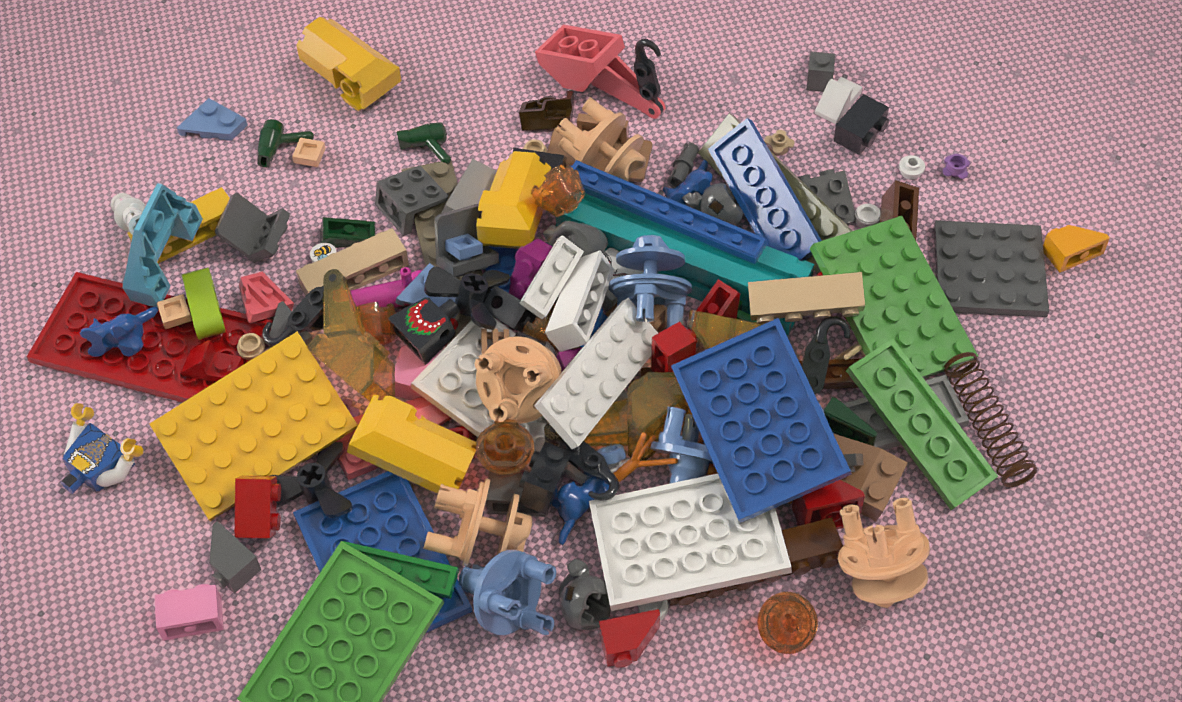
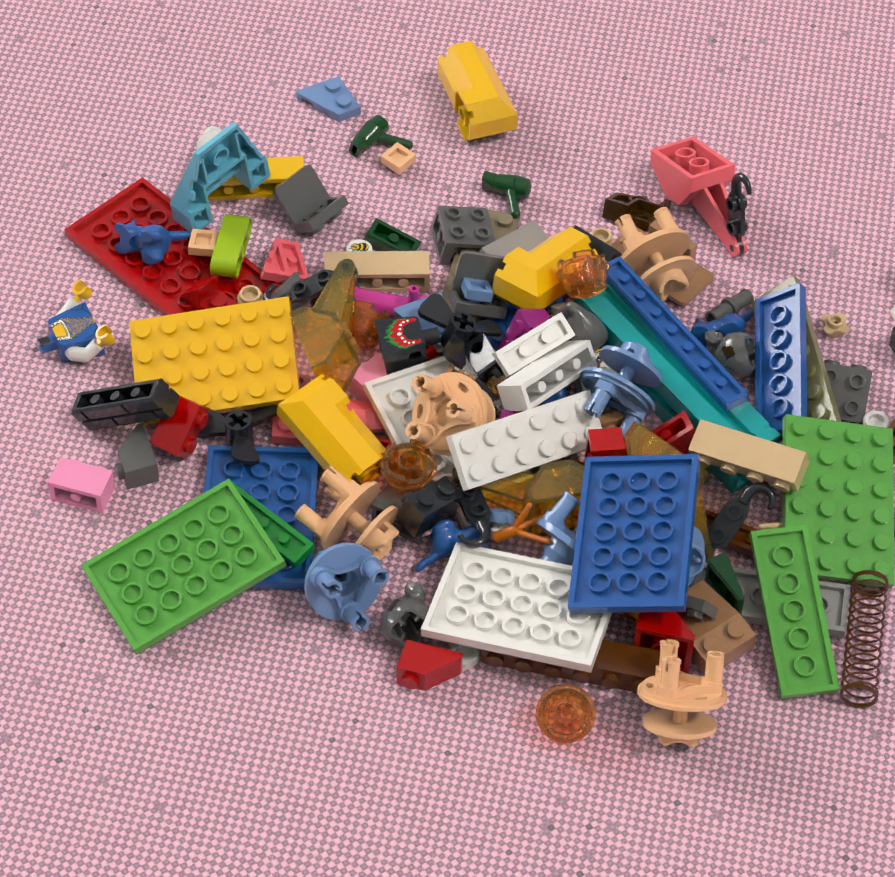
camera: 25 degrees right, 5 degrees down
(193, 511) = (125, 404): none -> black brick

